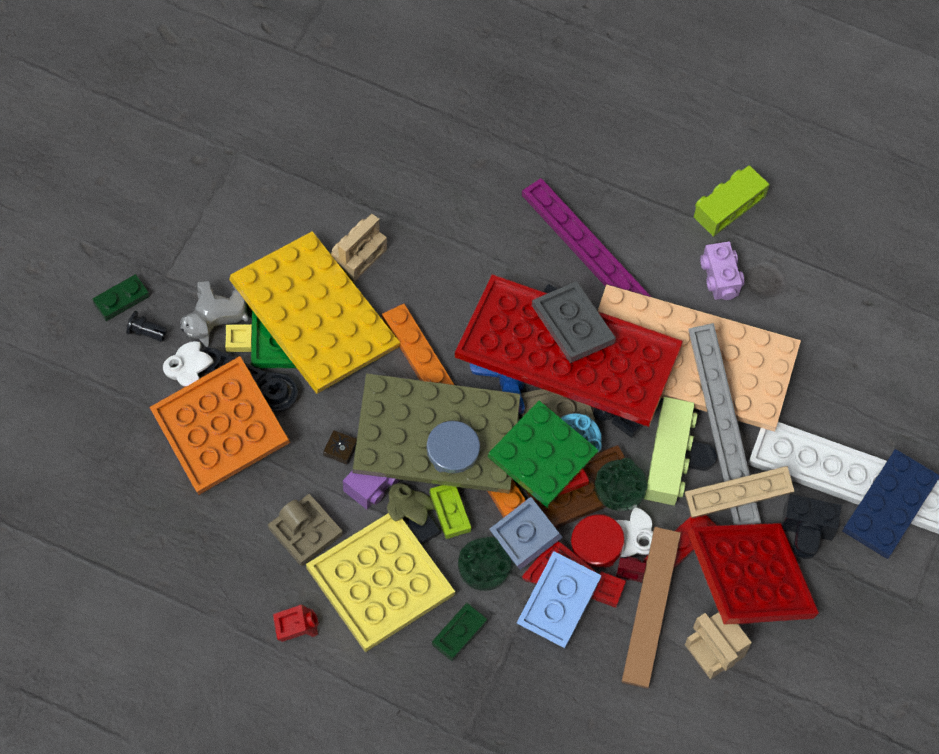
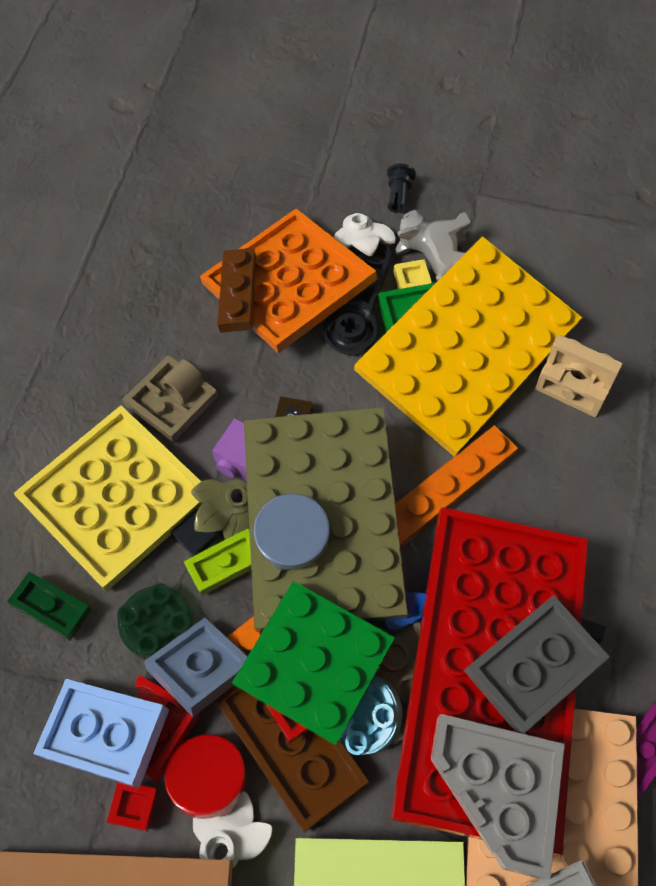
camera: 85 degrees right, 0 degrees up
(120, 297) = (433, 161): dark green plate -> none
(225, 460) = (237, 290): none -> reddish brown plate
(295, 623) = (45, 414): red bracket -> none
(620, 485) = (298, 795): clear green tile -> none
(631, 569) = (168, 835): dark red plate -> none
(643, 358) = (505, 788): none -> light grey plate

